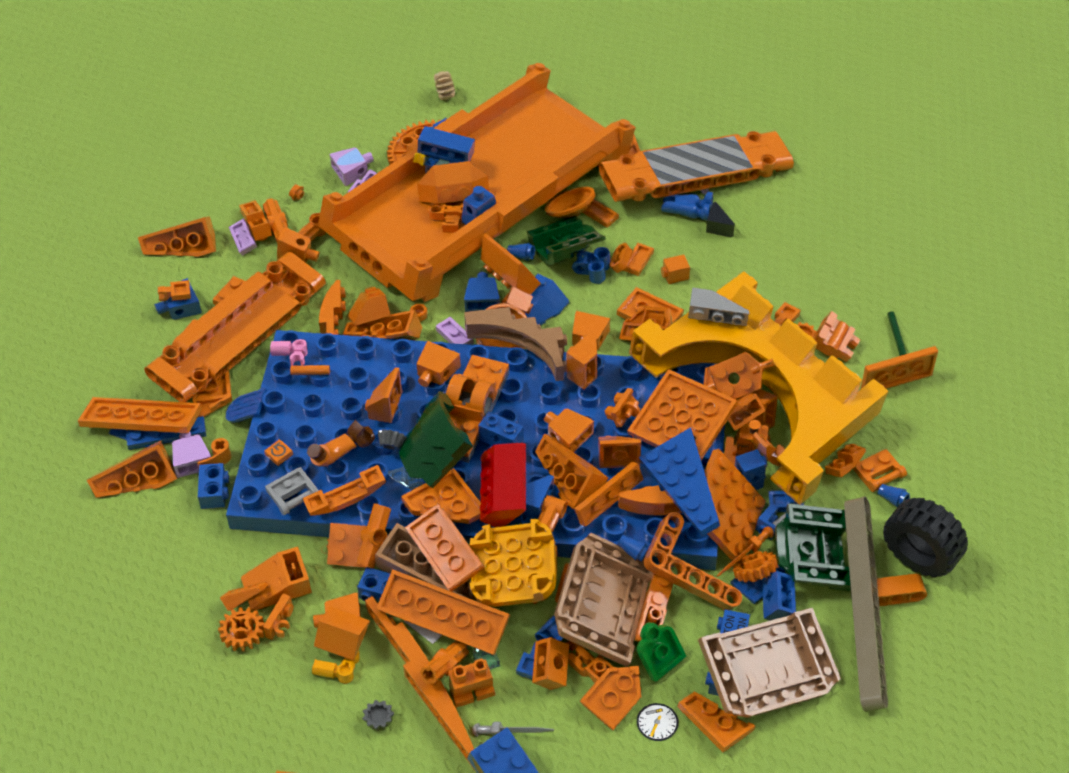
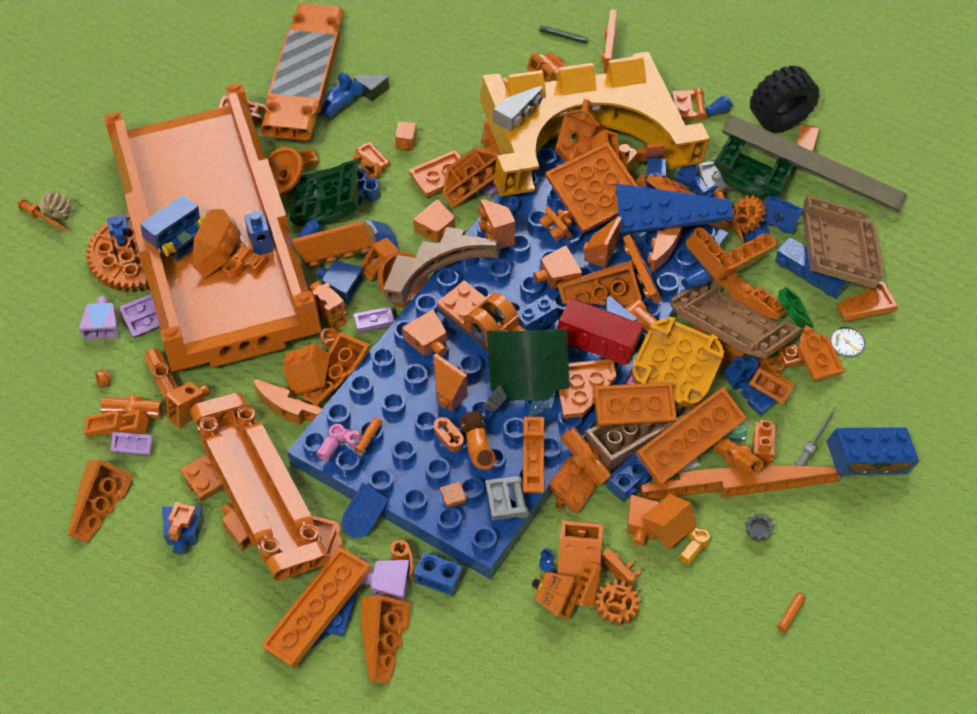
camera: 65 degrees left, 5 degrees up
(224, 577) = (557, 593): none -> orange torso
(260, 559) = (546, 561): none -> blue arm
(337, 423) = (445, 437): none -> orange beam
(437, 69) = (34, 212): none -> orange sword
(444, 295) = (329, 305): none -> orange hips

